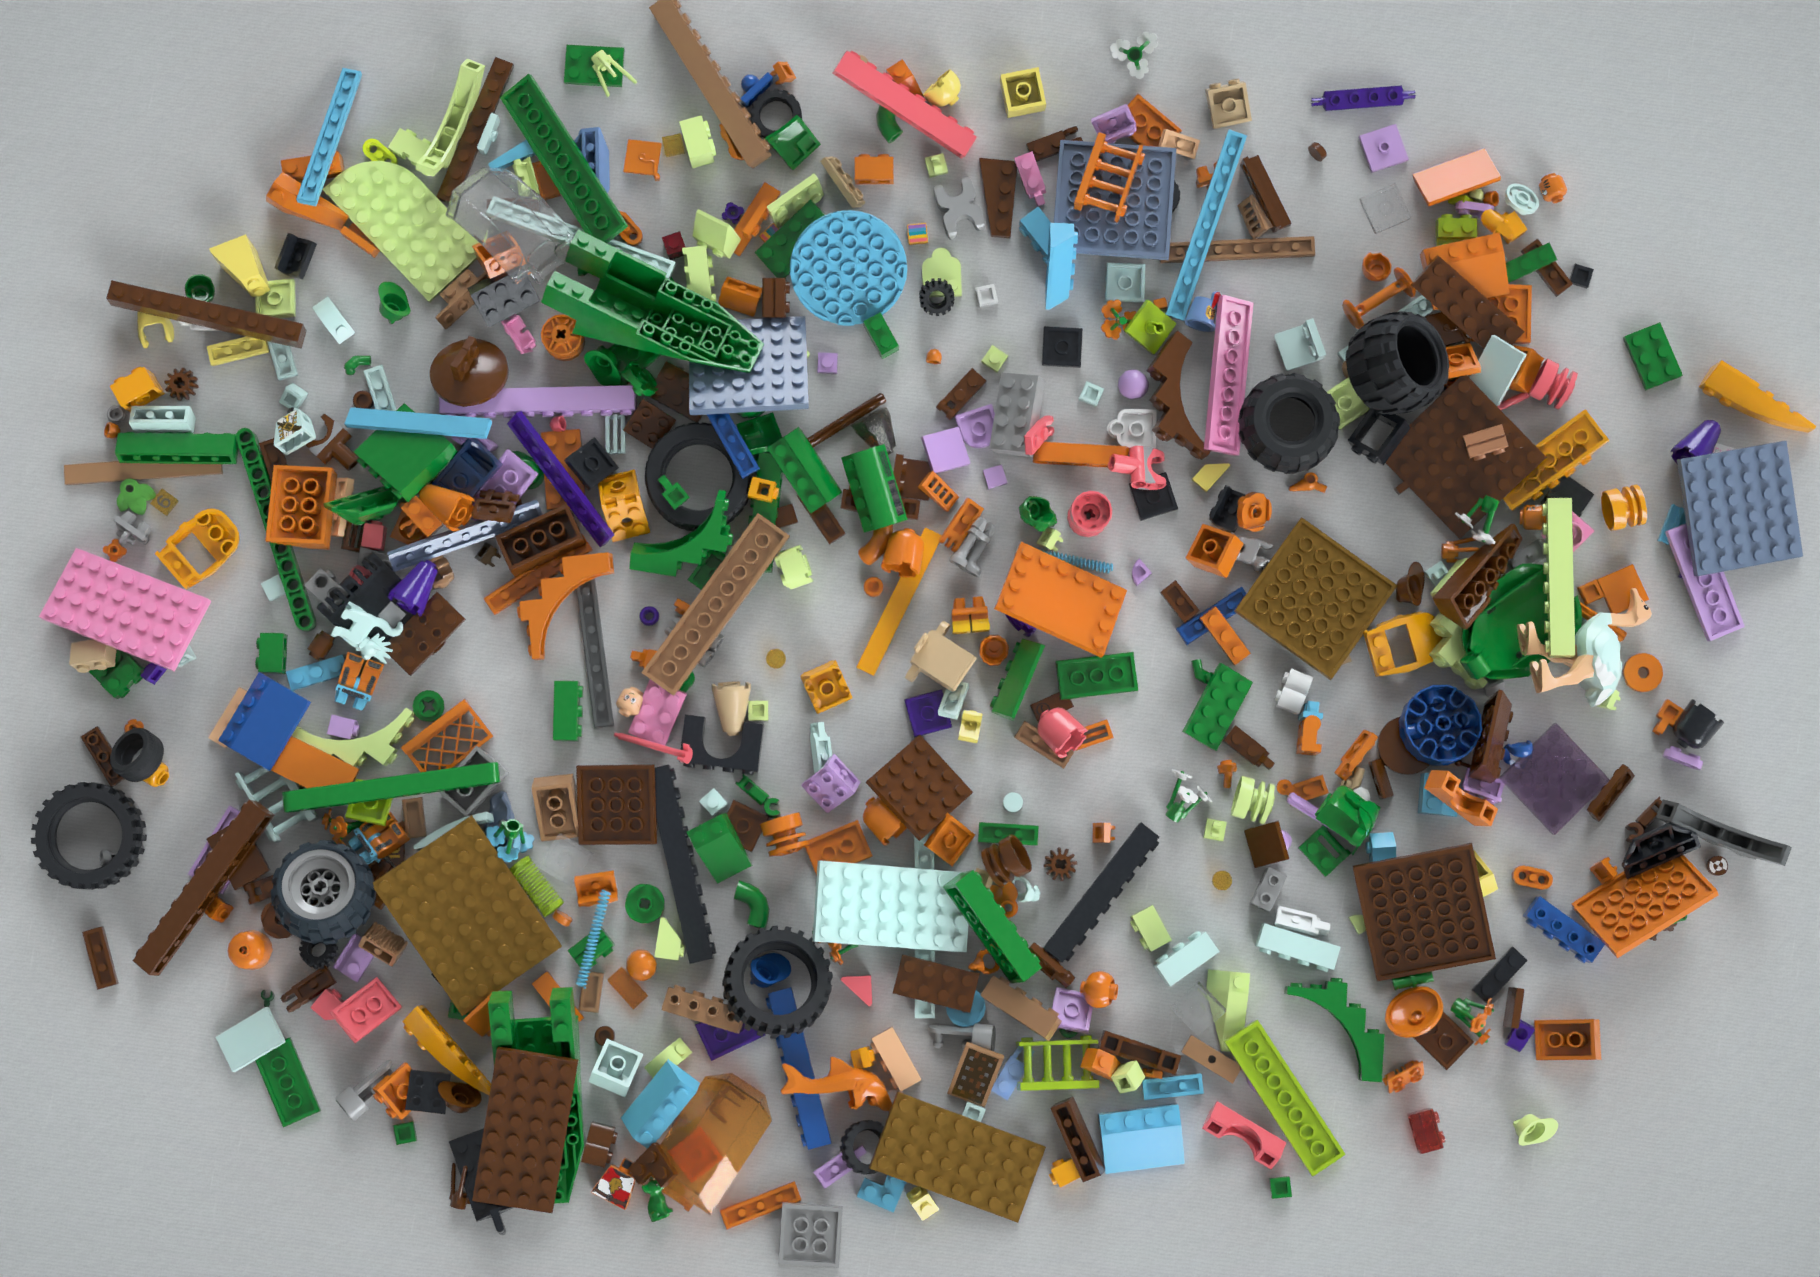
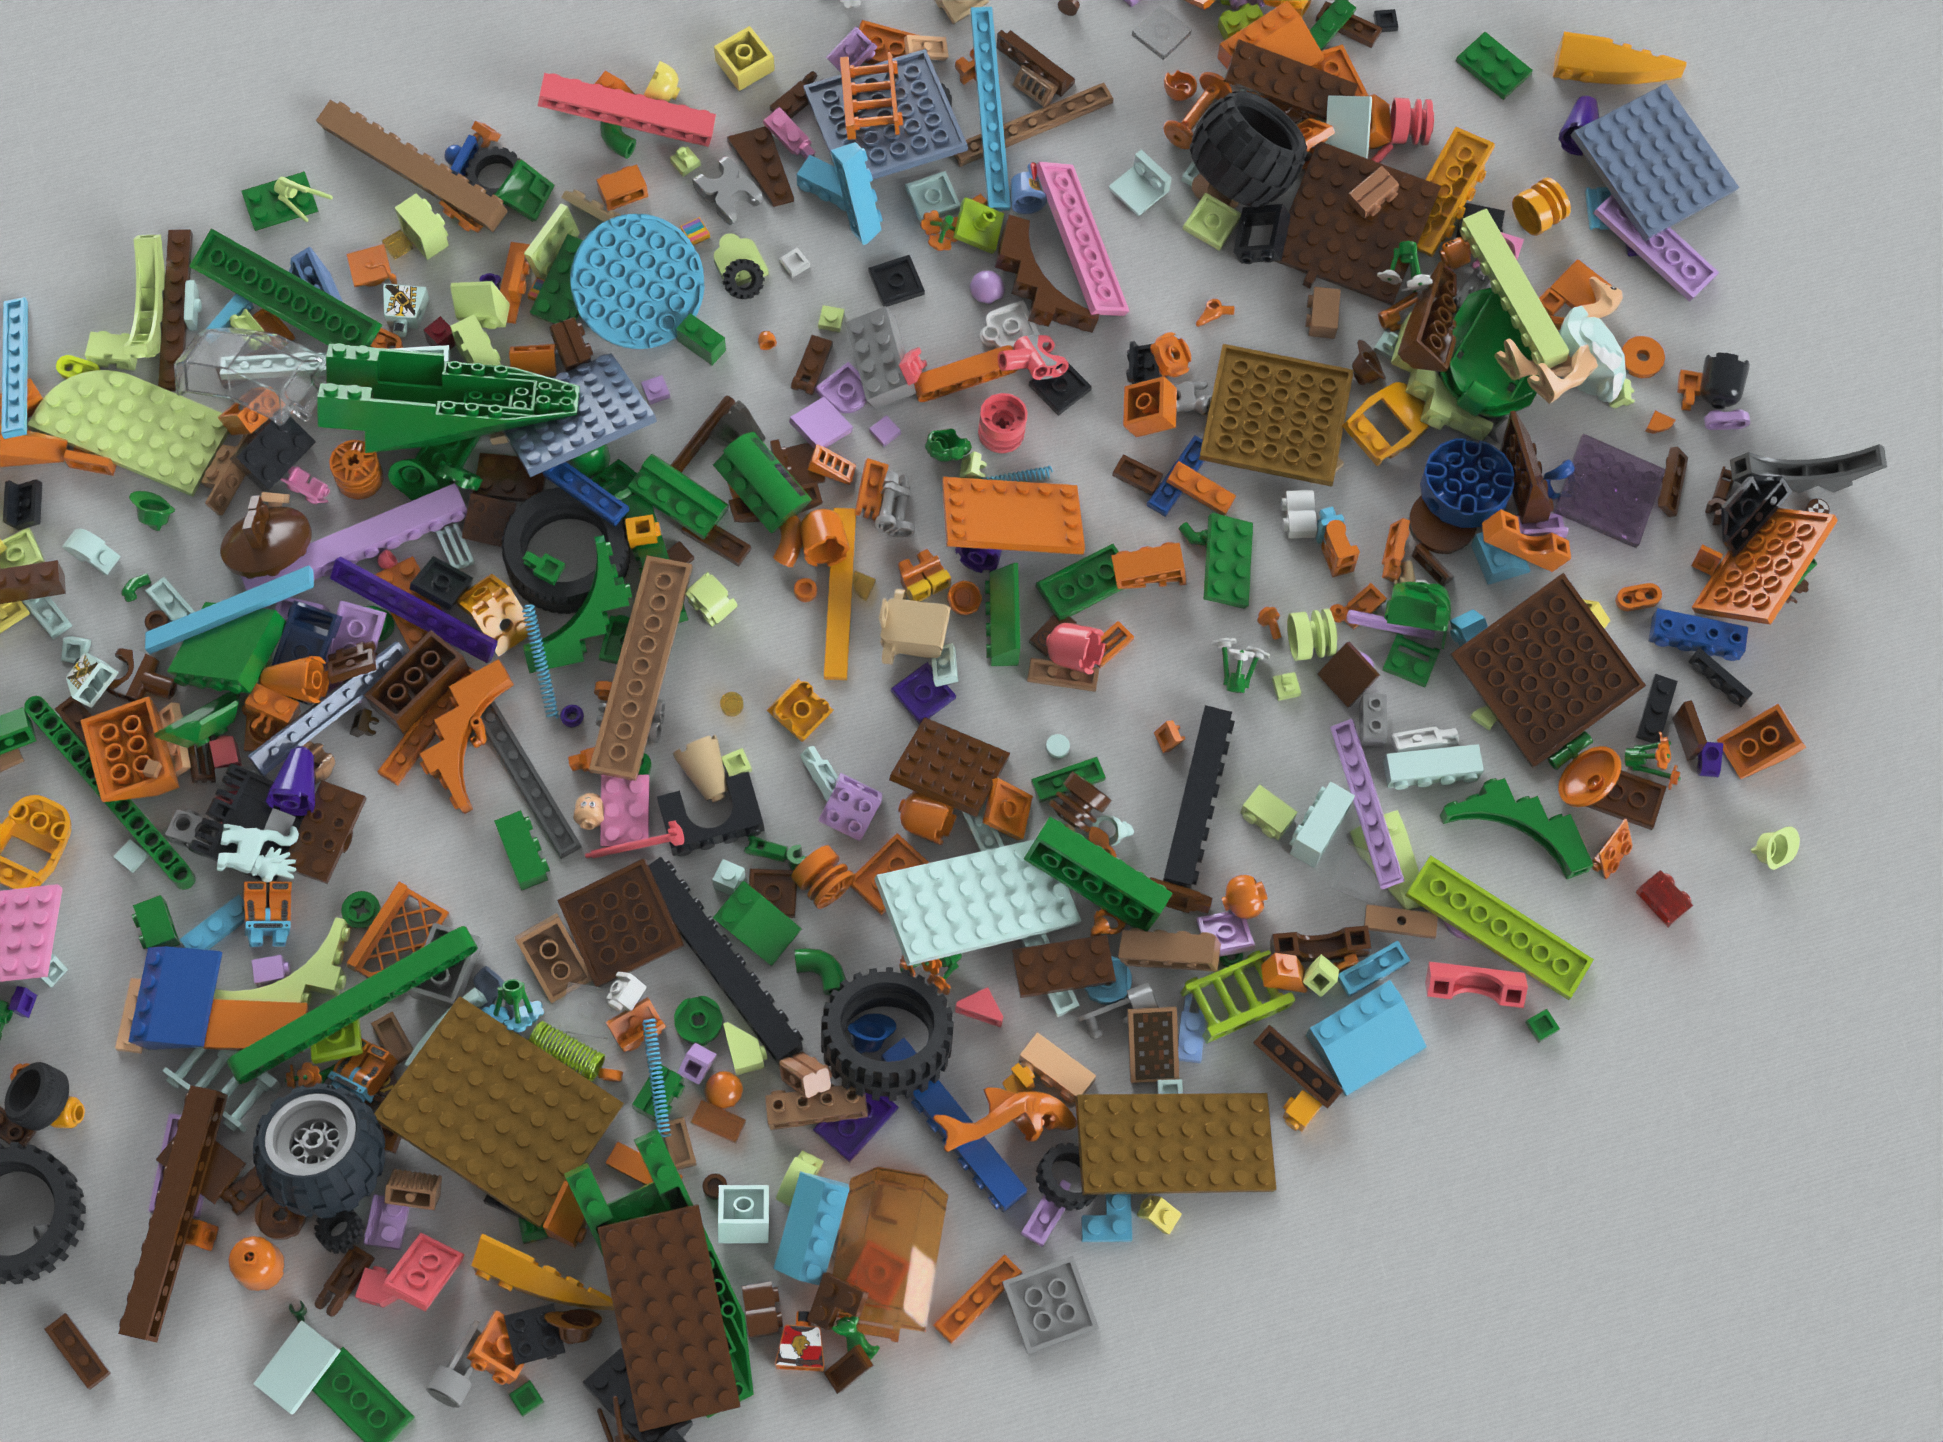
camera: 25 degrees left, 15 degrees down
(311, 533) = (152, 769): none -> medium nougat piece
(321, 645) = (209, 894): reddish brown brick -> none
(491, 334) = (275, 499): none -> light nougat plate
(572, 603) = (479, 729): none -> orange arm
(597, 861) = (625, 992): none -> white brick
(628, 939) = (696, 1063): none -> lavender brick
(638, 568) = (532, 611): none -> medium azure piece
(643, 1217) = (848, 1368): none -> reddish brown tile
(655, 206) = (404, 307): none -> torso
(704, 984) = (805, 1074): none -> nougat brick
(920, 602) = (863, 585): none -> clear yellow tile
(970, 726) = (975, 685): light yellow bracket -> none
(1061, 857) = (1143, 794): reddish brown gear -> none
(1091, 394) = (947, 313): light aqua tile -> none
(1140, 572) = (1082, 464): lavender tile -> none
(1150, 687) = (1149, 566): none -> orange wedge
(1209, 475) = (1108, 343): light yellow tile -> none
(1221, 880) = (1319, 734): clear yellow tile -> none
(1228, 957) = (1367, 804): none -> lavender tile
(1248, 748) = (1281, 590): reddish brown hinge -> none
(1269, 448) = (1158, 282): black tyre -> none
(1397, 524) = (1323, 312): none -> medium nougat brick
(1562, 973) = (1720, 677): none -> black plate
(1626, 736) = (1659, 423): none -> orange tile

